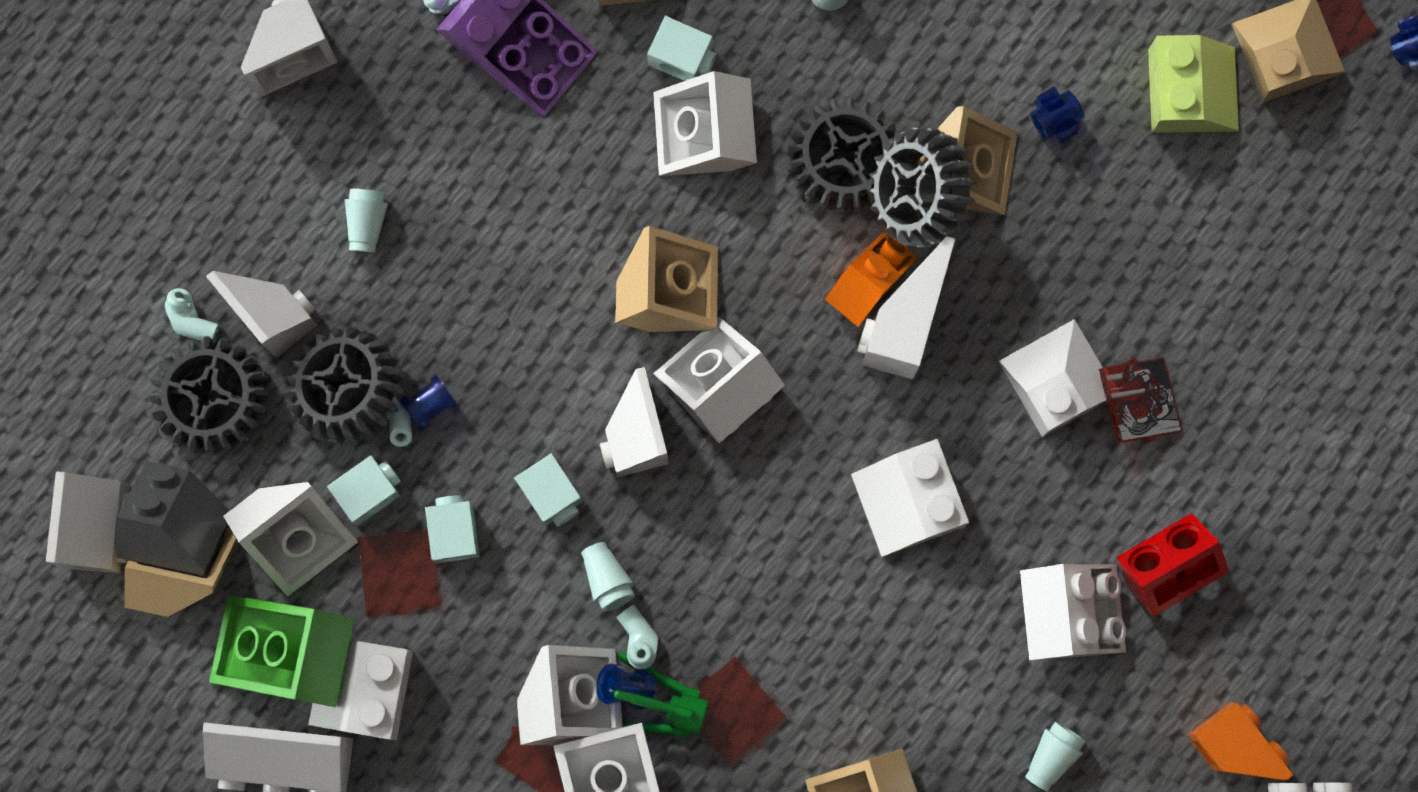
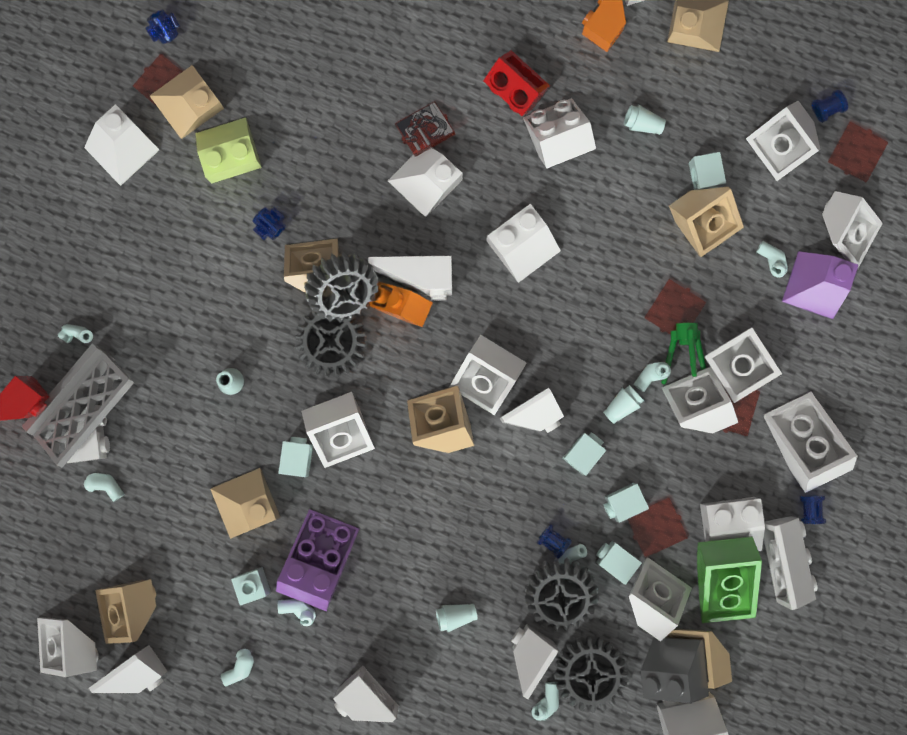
camera: 105 degrees left, 5 degrees up
(616, 678) = (681, 374): clear blue bush -> none

